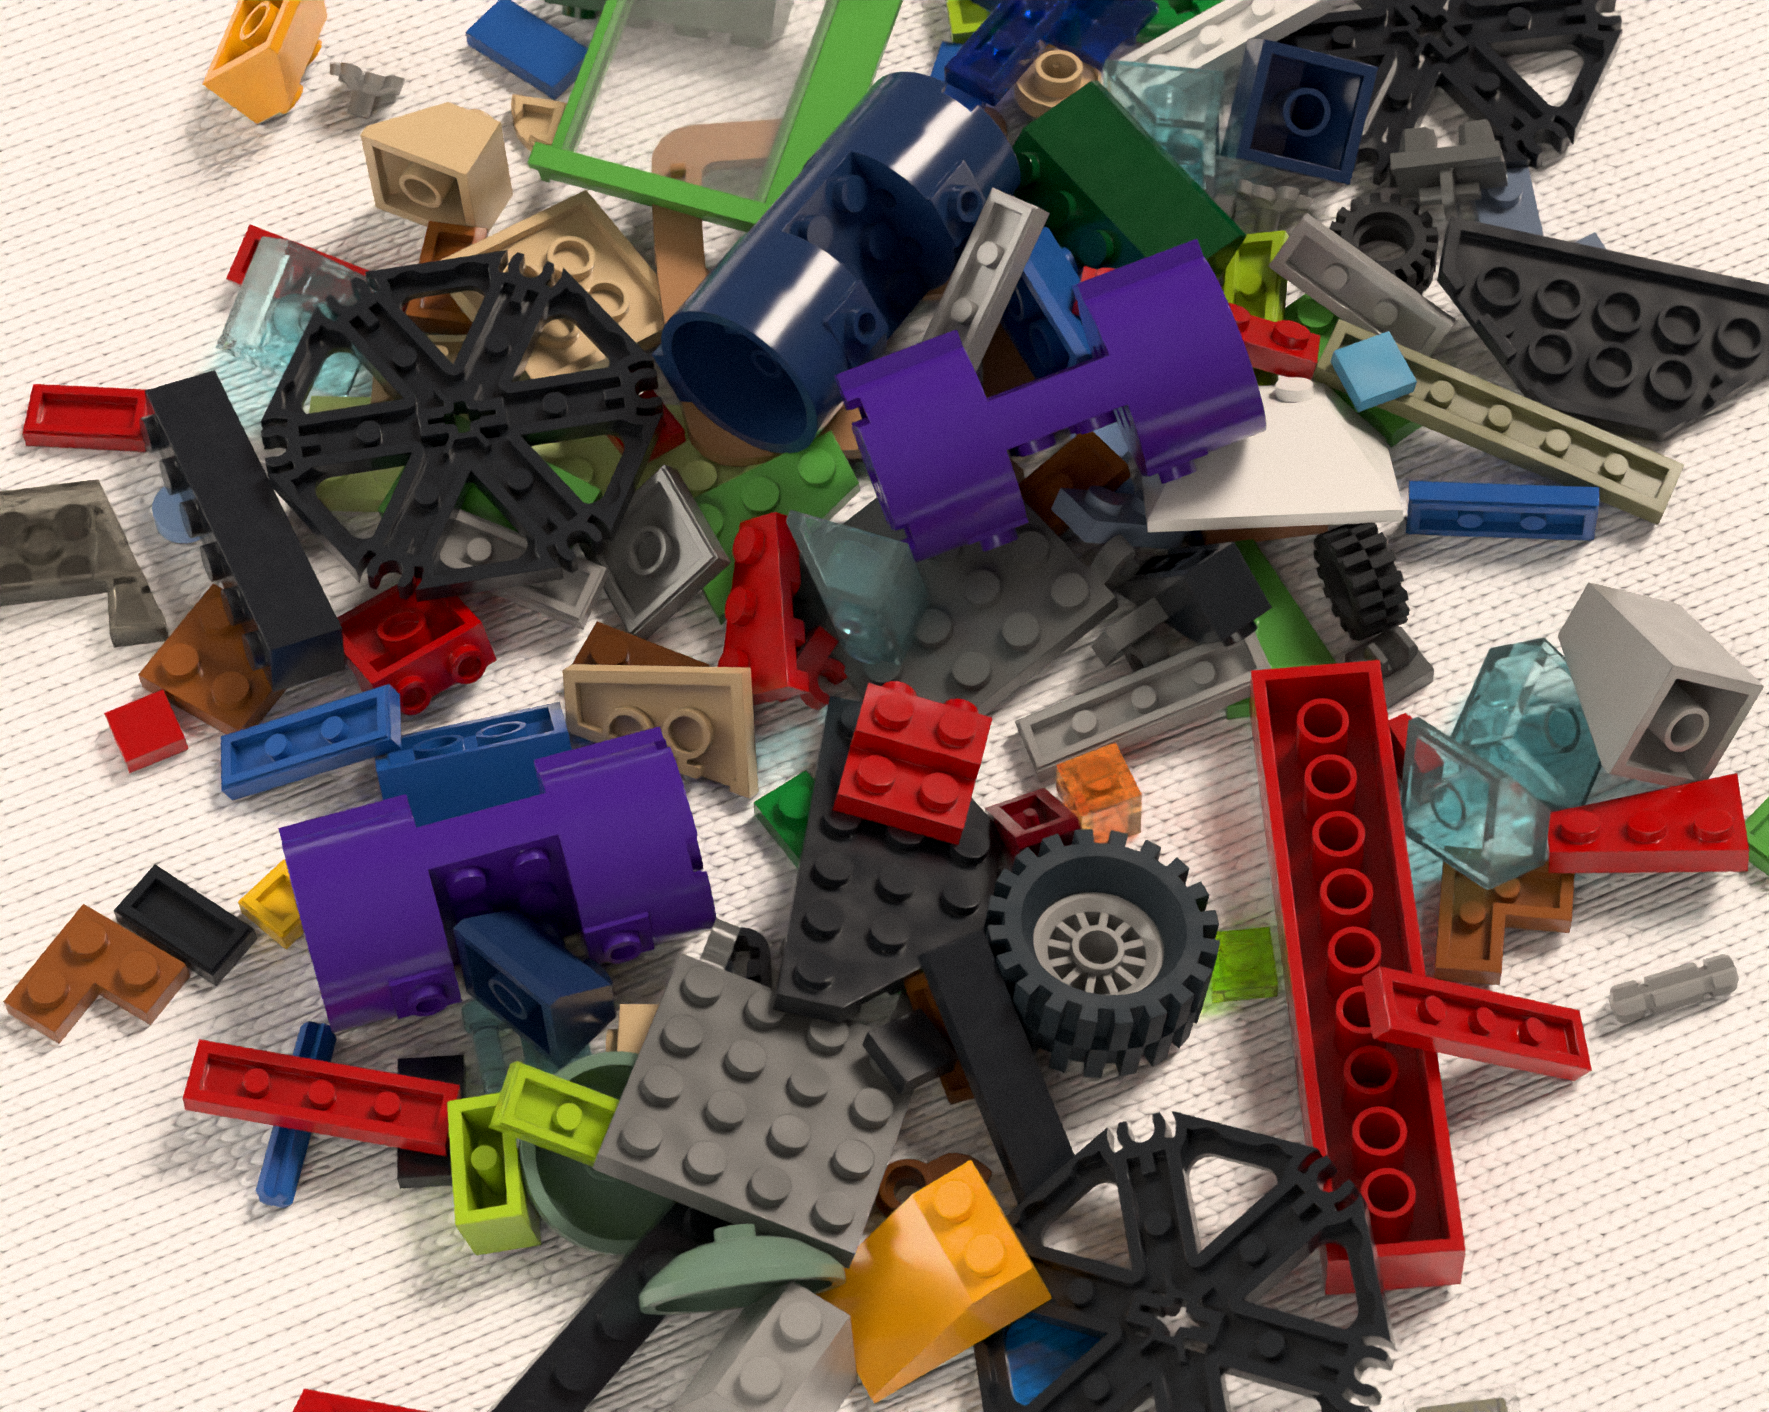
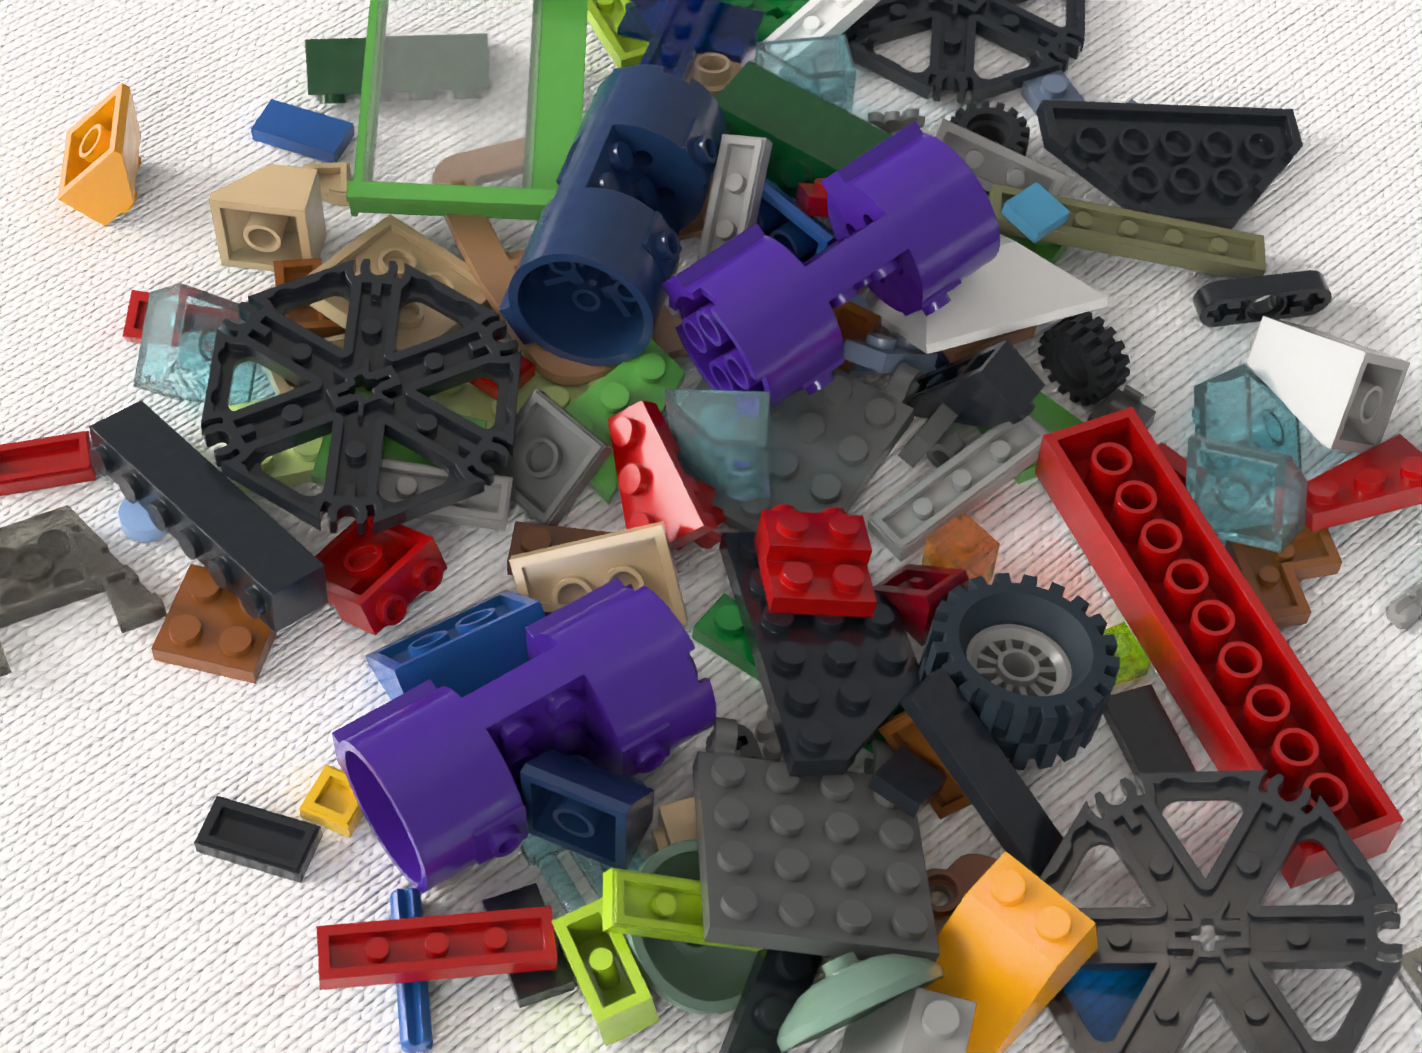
camera: 25 degrees left, 5 degrees down
(92, 960) = (193, 886): dark orange plate -> none
(146, 731) = (171, 692): red tile -> none
(311, 742) = (319, 665): blue tile -> none
(364, 86) = (186, 178): light grey plant -> none
(1236, 1069) = (1145, 732): none -> black tile
(1299, 111) = (898, 57): dark blue slope -> none
(1449, 172) = (1019, 77): dark grey hips -> none
(1476, 1024) = (1325, 648): red plate -> none
(1502, 510) = (1155, 291): blue tile -> none
(1670, 550) = (1233, 299): none -> black beam

